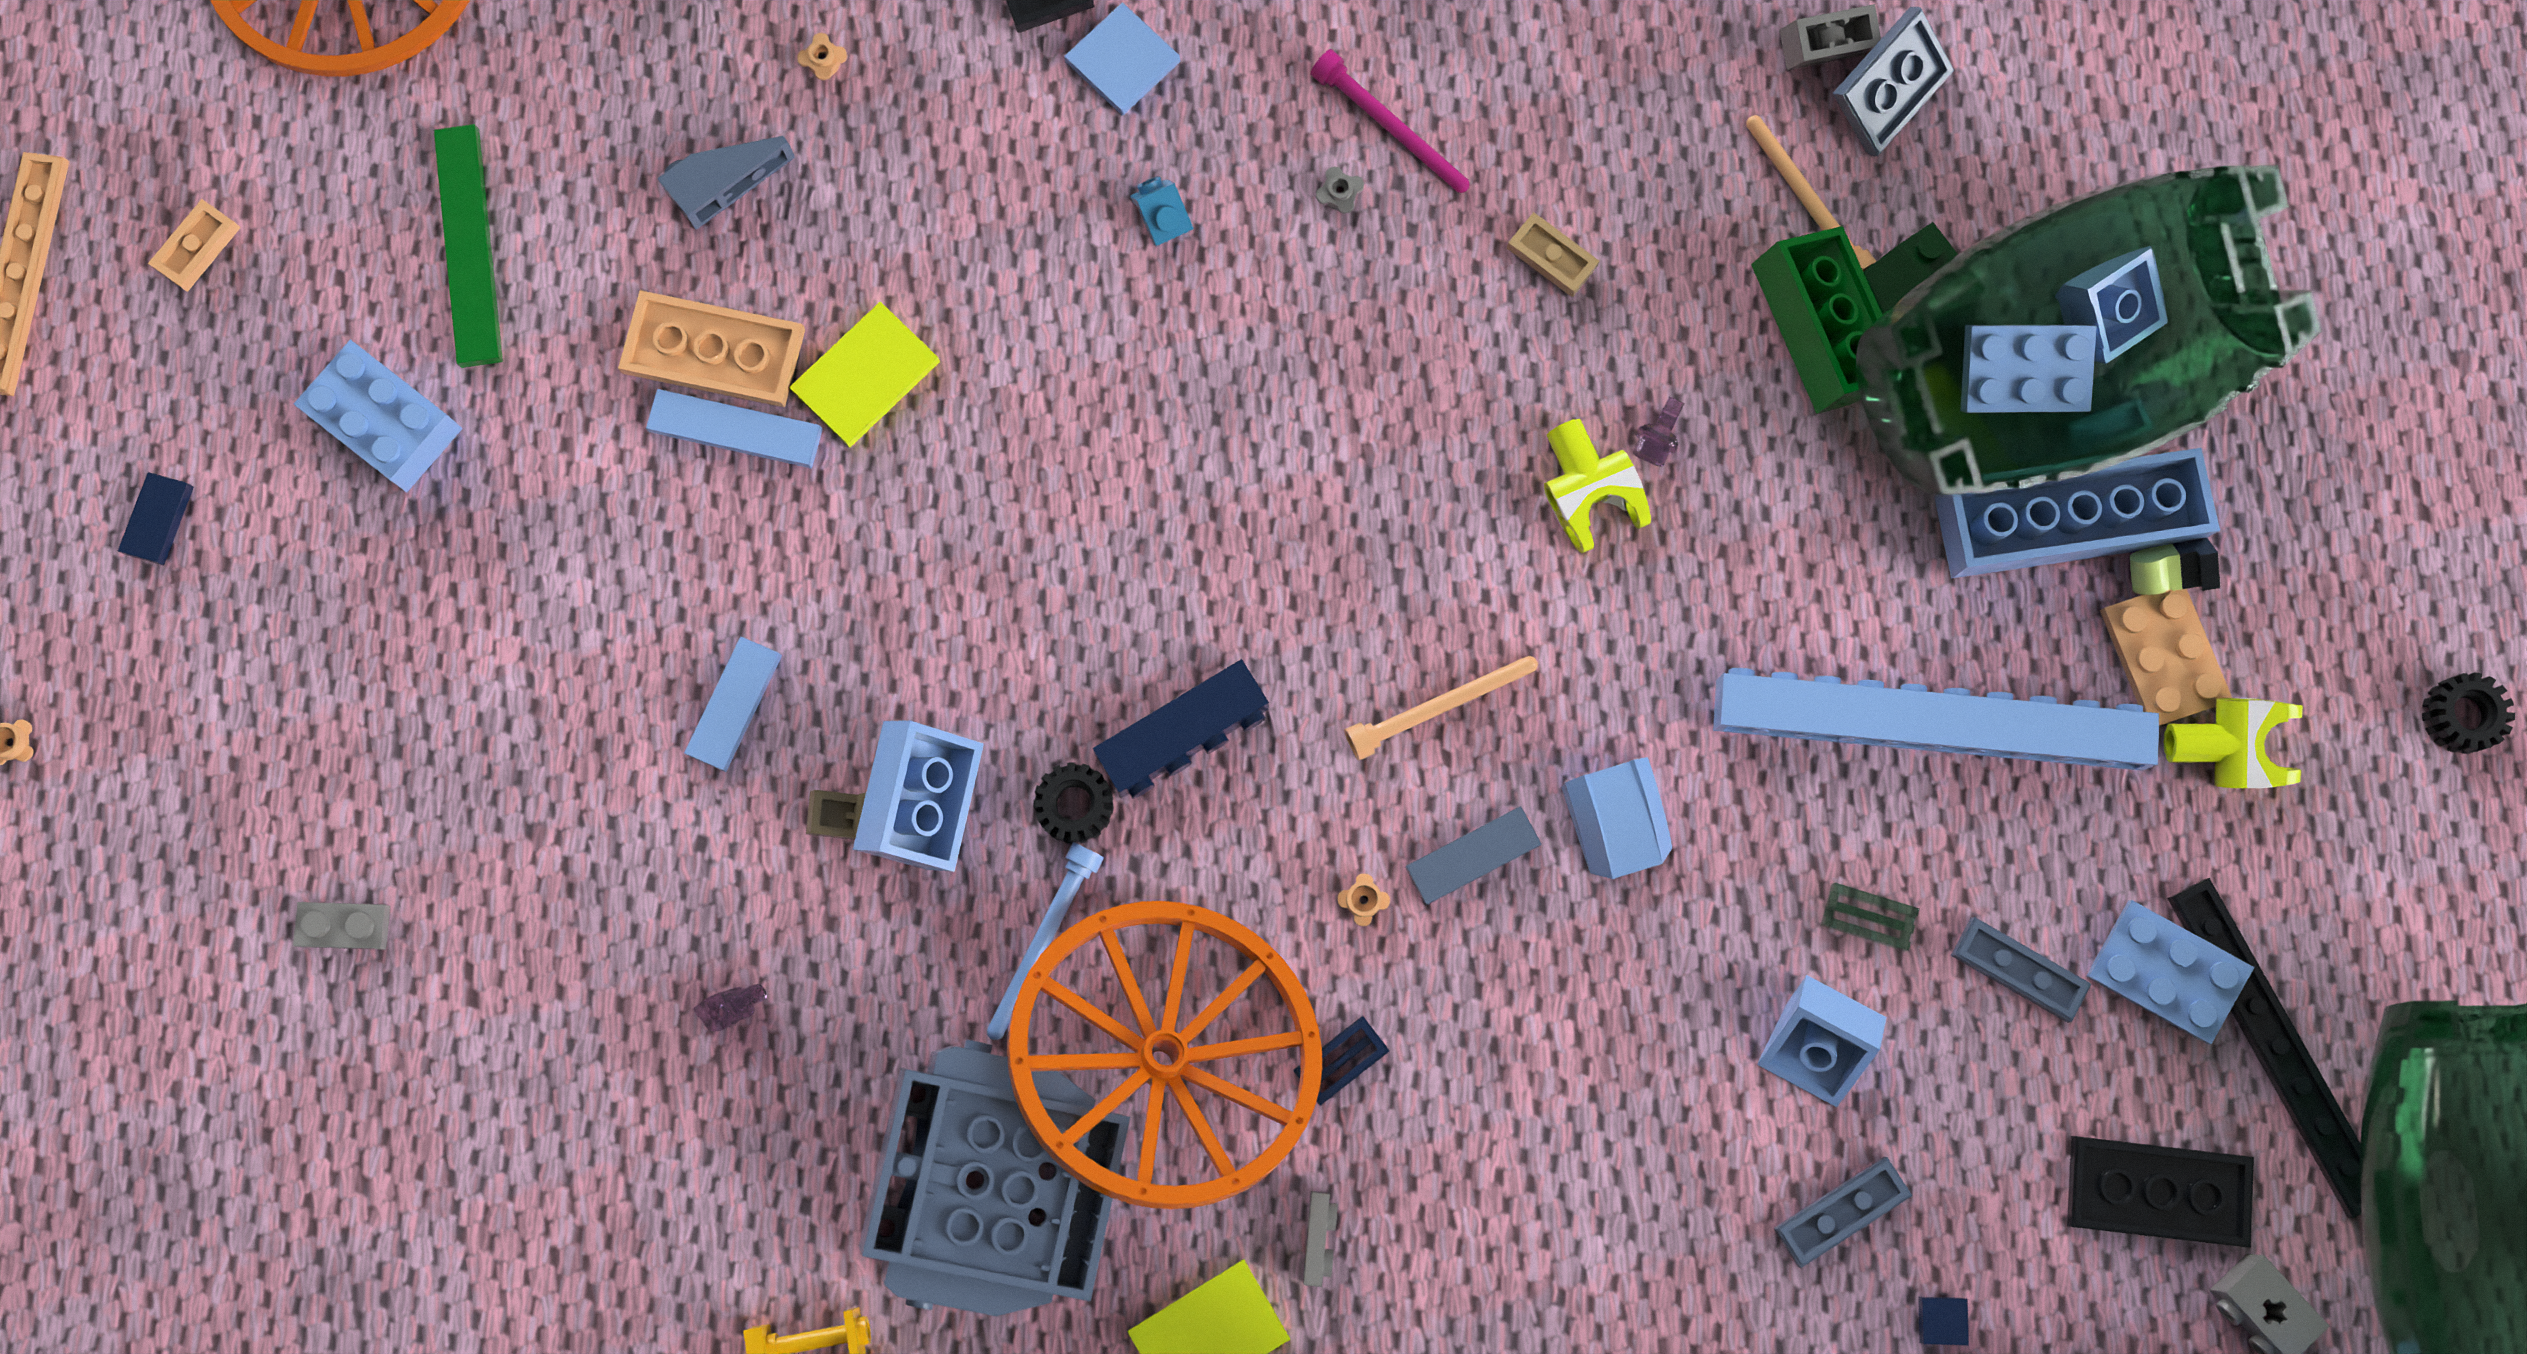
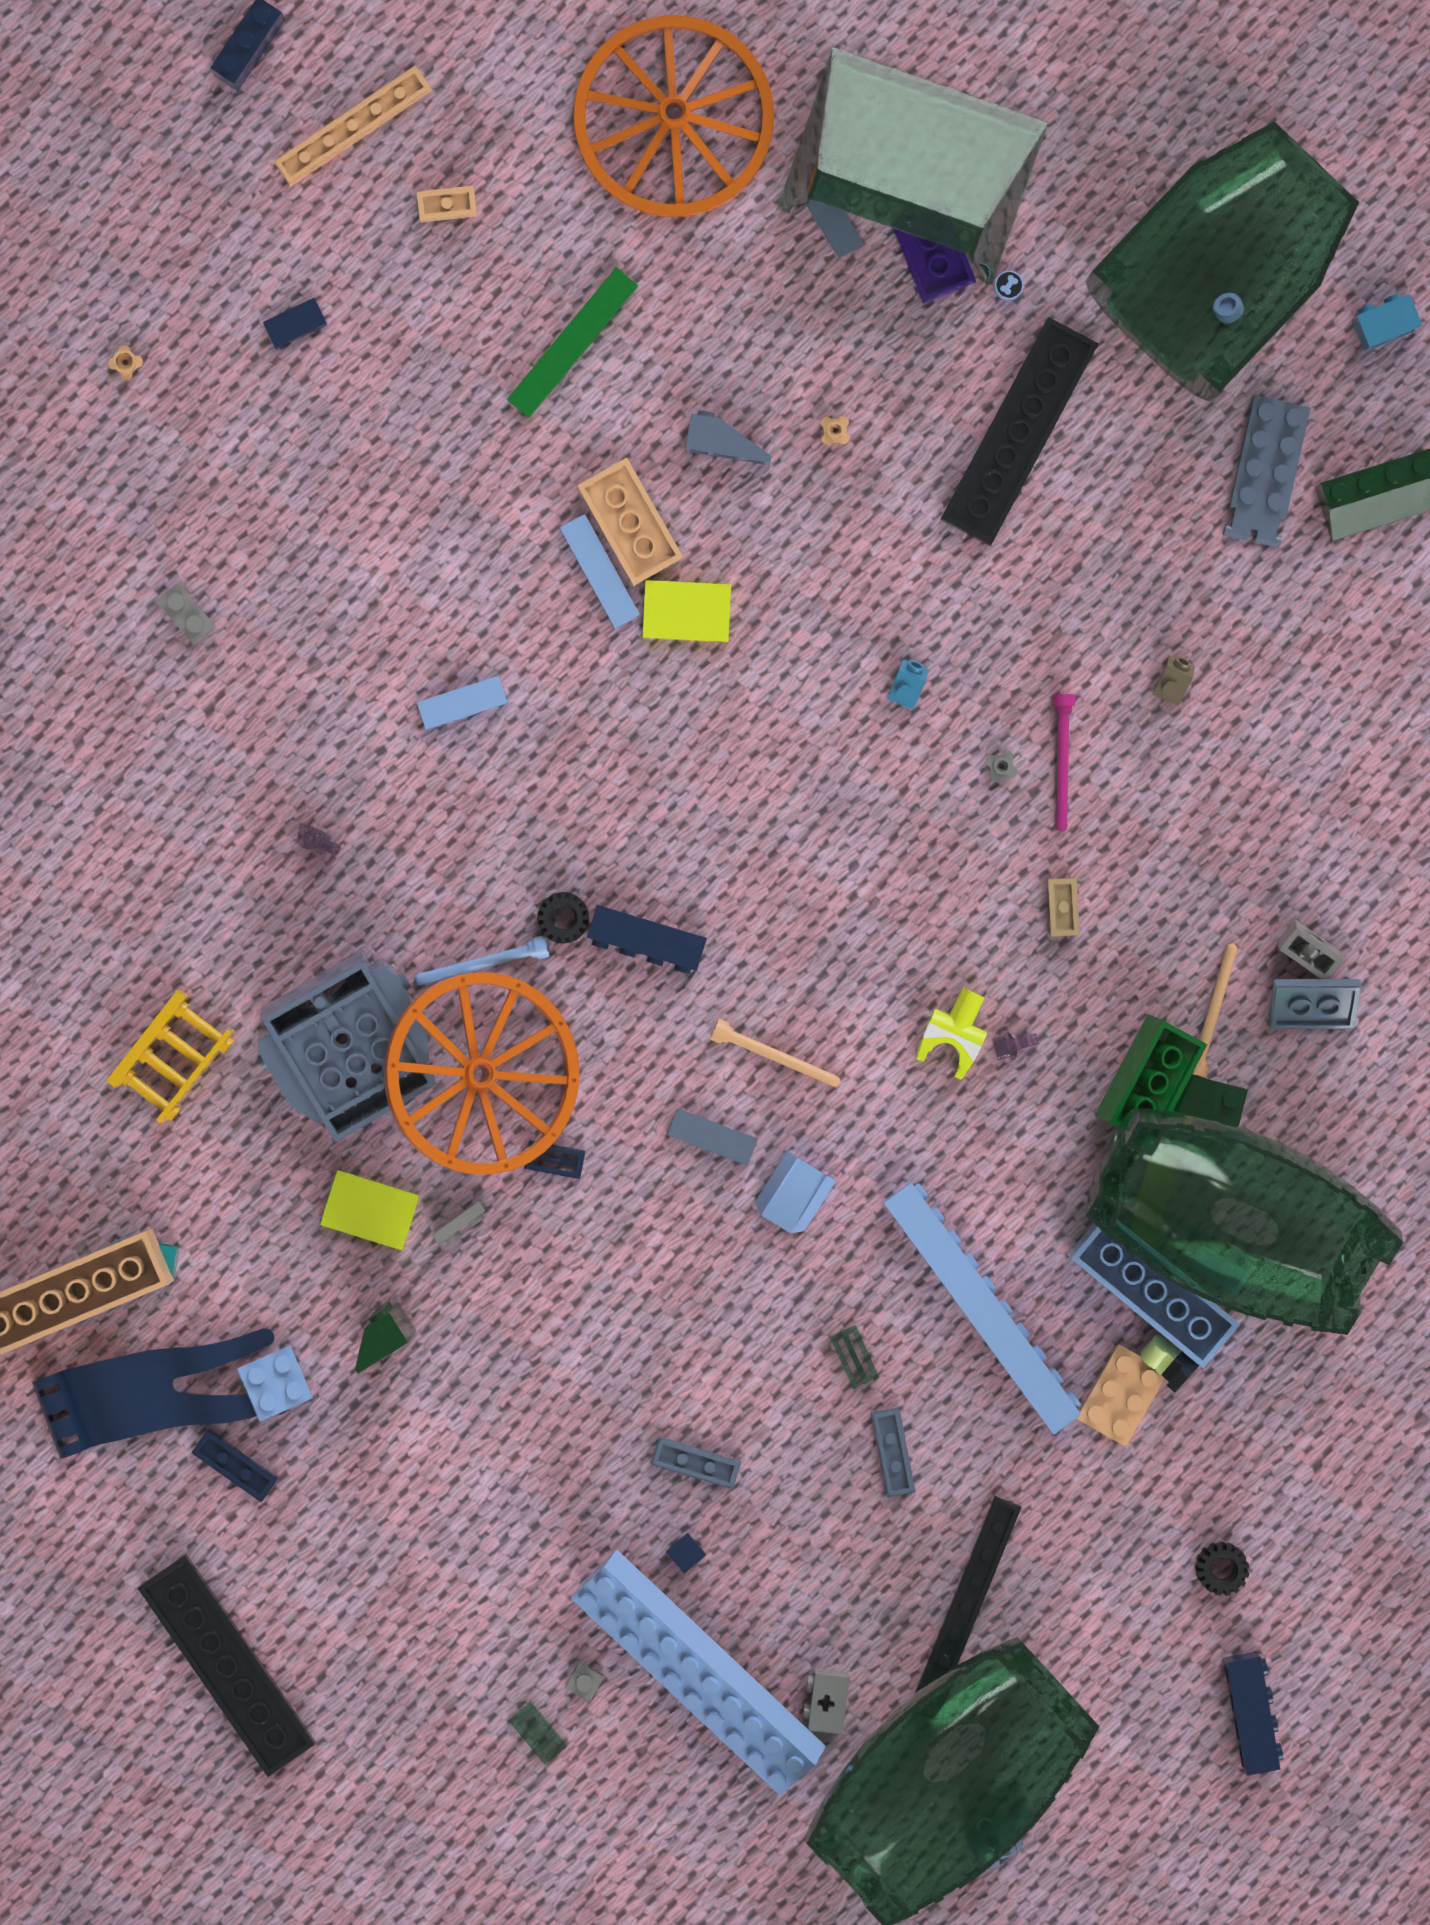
camera: 55 degrees right, 10 degrees up
(378, 416) = (444, 388): light blue brick -> none
(834, 814) = (455, 809): dark tan bracket -> none
(918, 795) = (497, 841): light blue brick -> none
(1122, 58) = (974, 587): light blue tile -> none
(1363, 887) = (648, 1108): light nougat plate -> none
(1823, 1041) = (770, 1384): light blue slope -> none
(2028, 368) = (1207, 1203): light blue plate -> none
(2119, 298) = (1284, 1220): light blue slope -> none
(2160, 1191) = (841, 1606): black tile -> none
(2170, 972) = (954, 1524): light blue plate -> none
(2235, 743) = (1101, 1465): neon yellow connector -> none

